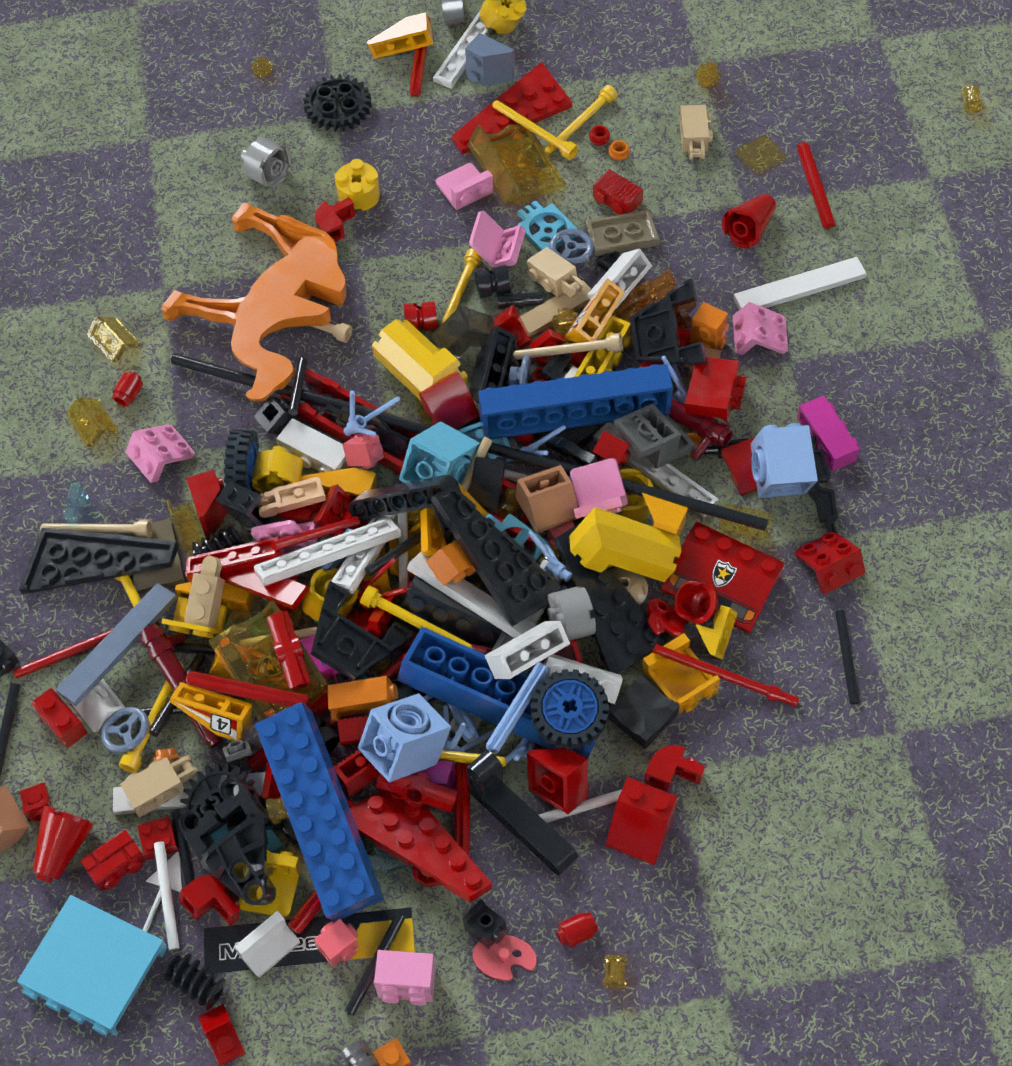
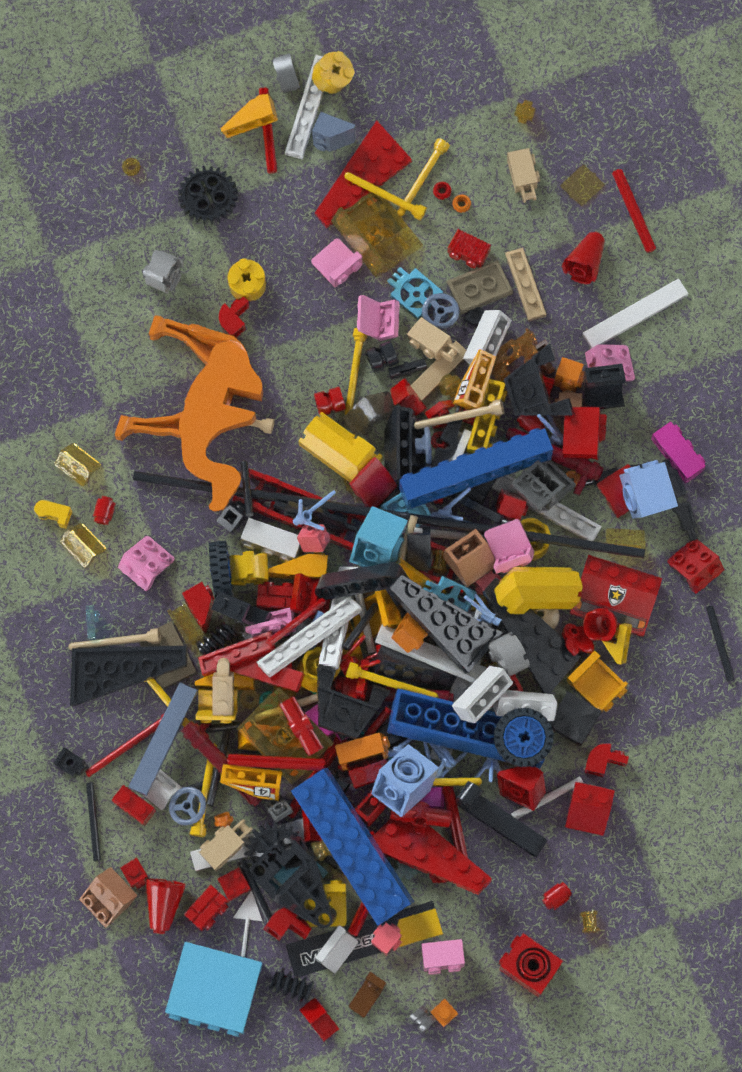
camera: 10 degrees left, 15 degrees up
(68, 380) = (54, 511): none -> yellow leg
(166, 896) = (253, 927): white bar -> none
(291, 497) = (268, 590): light nougat hinge -> none
(294, 1012) = (367, 994): none -> reddish brown bracket
(369, 974) = (417, 948): black bar -> none
(489, 933) = (494, 912): black brick -> none
(498, 959) = (501, 925): coral piece -> none
(516, 708) = (484, 742): light blue axle -> none
(516, 994) = (526, 951): none -> red brick
(667, 515) = (565, 557): light orange slope -> none
(676, 239) = (525, 284): none -> tan tile
(750, 343) = (604, 386): none -> black panel
(771, 692) = (667, 684): red bar -> none

